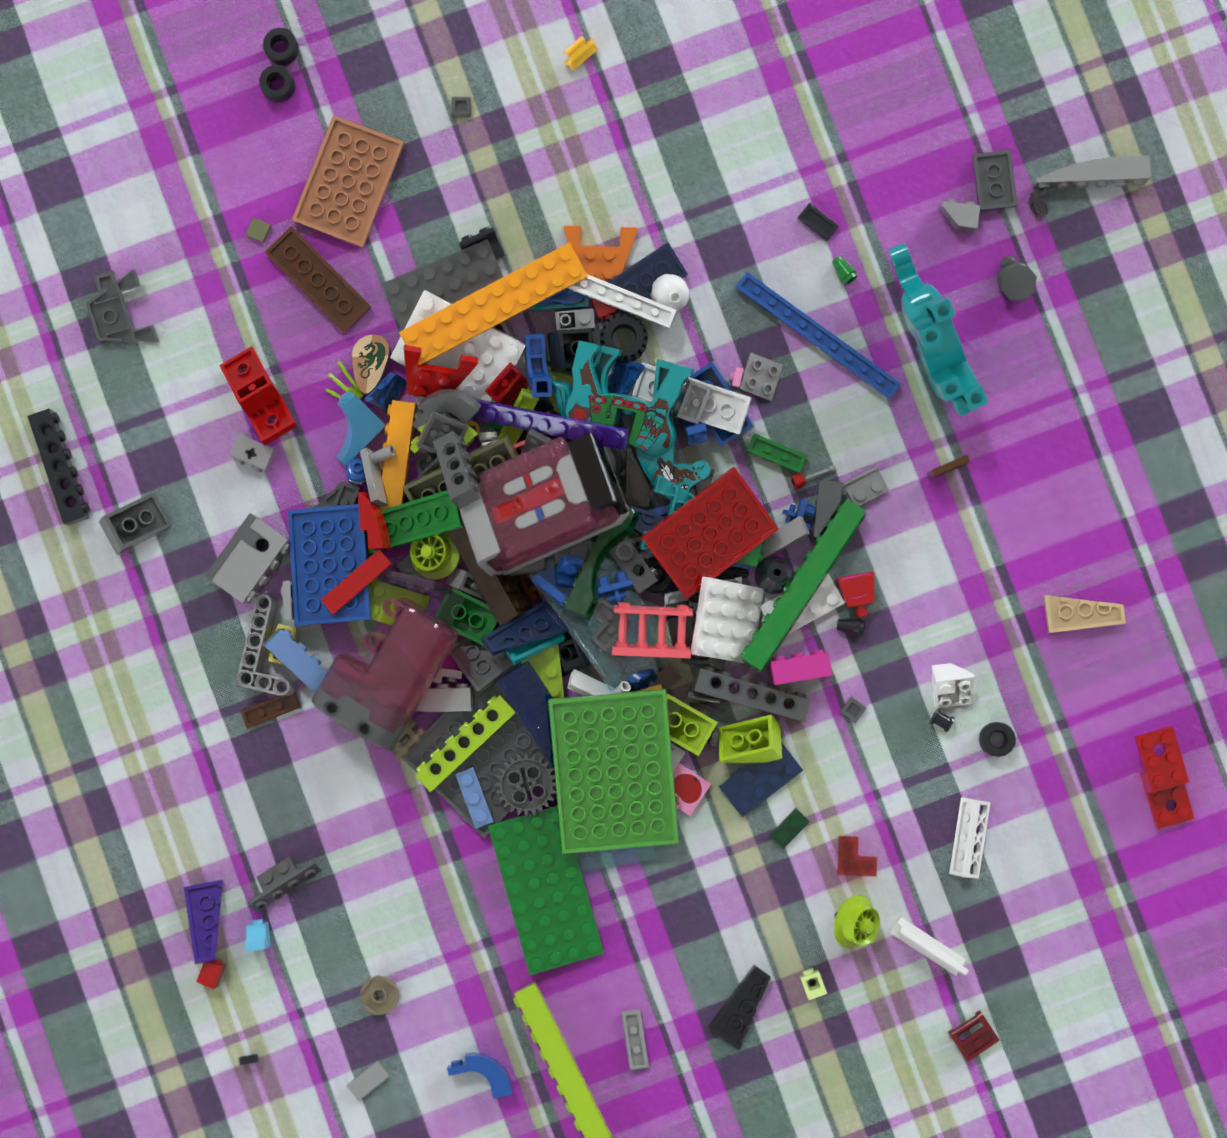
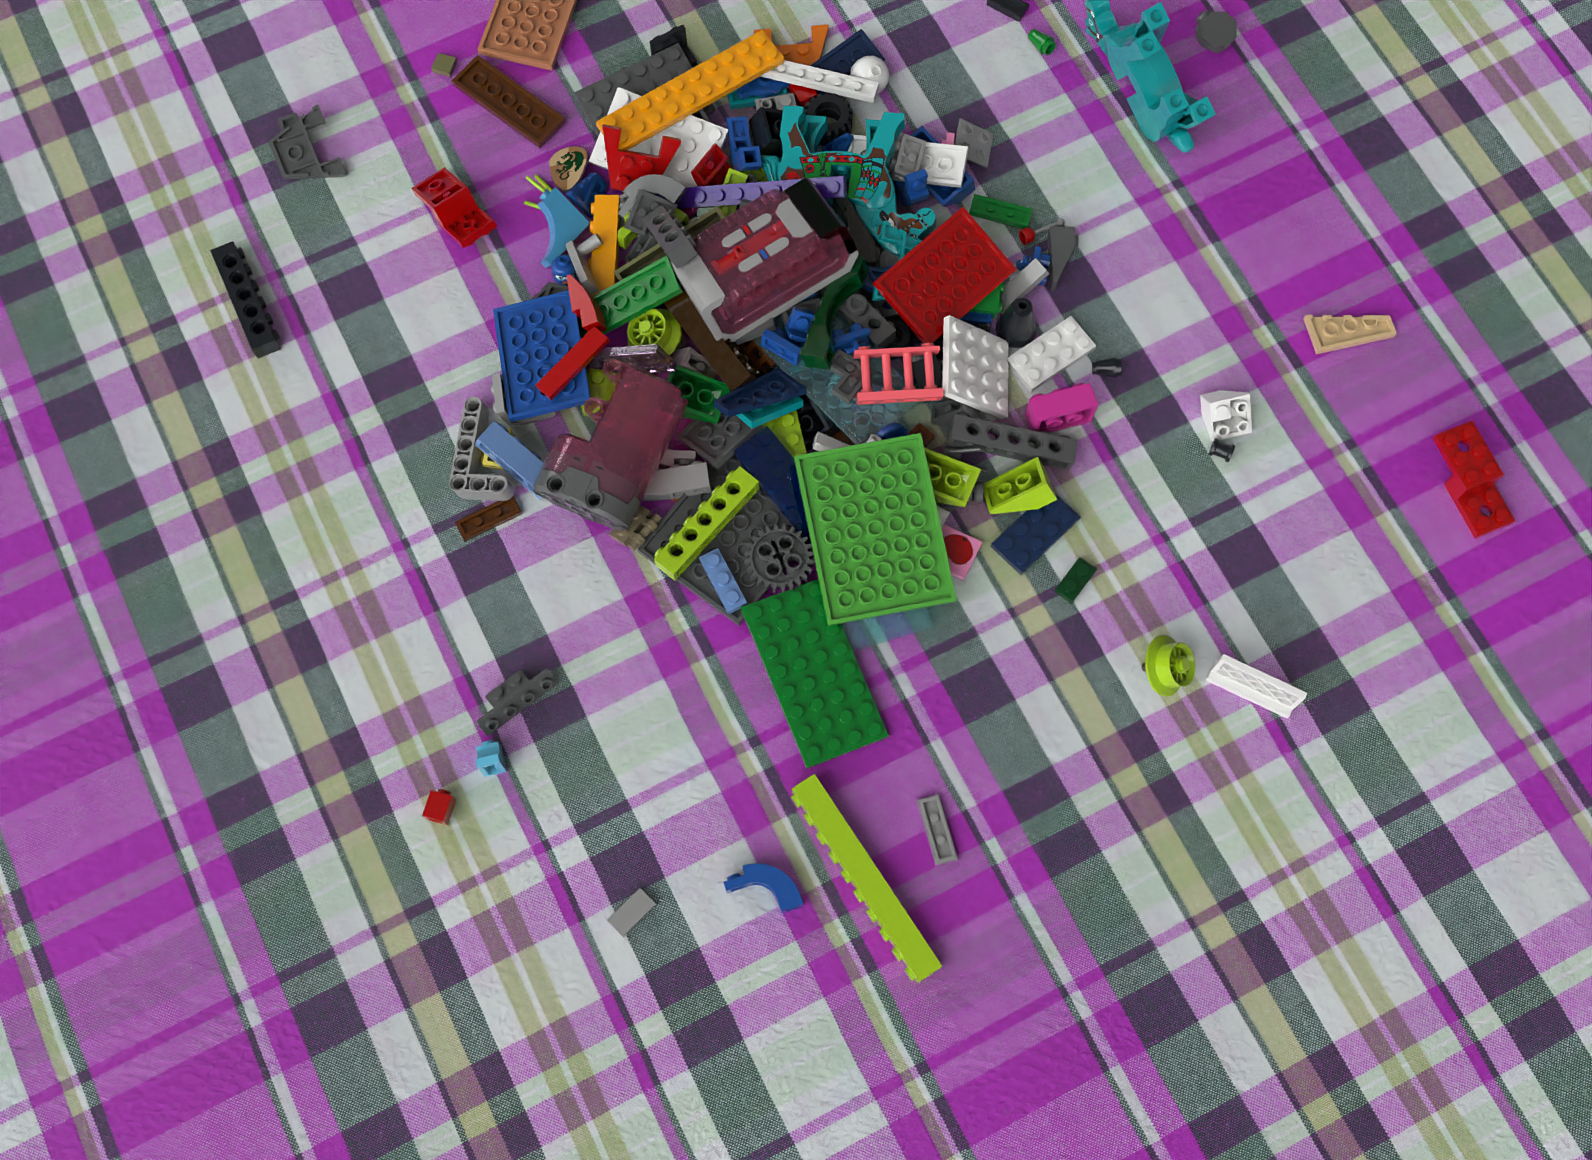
camera: 10 degrees left, 15 degrees down
(134, 523) = (328, 345): dark grey slope -> none
(203, 912) = (426, 742): dark purple wing -> none
(243, 565) = (454, 363): light grey piece -> none
(244, 445) = (452, 265): light grey brick -> none
(248, 1059) = (489, 902): black tile -> none
(369, 999) = (637, 824): dark tan plate -> none
(736, 1014) = (1051, 782): black wing -> none
(804, 586) = (1050, 329): green brick -> none
(815, 990) = (1133, 734): yellowish green brick -> none
(818, 335) = (1026, 101): blue plate -> none
(850, 863) = (1150, 608): clear red plate -> none
(853, 709) = (1123, 451): dark grey tile -> none
(857, 591) = (1107, 331): red torso -> none
(865, 487) = (1098, 235): light grey plate -> none
(948, 467) = (1181, 201): reddish brown tile -> none
(967, 837) = (1273, 568): white fence -> none
(977, 1041) = (1328, 787): dark red plate -> none
(1009, 736) = (1291, 452): black tyre -> none

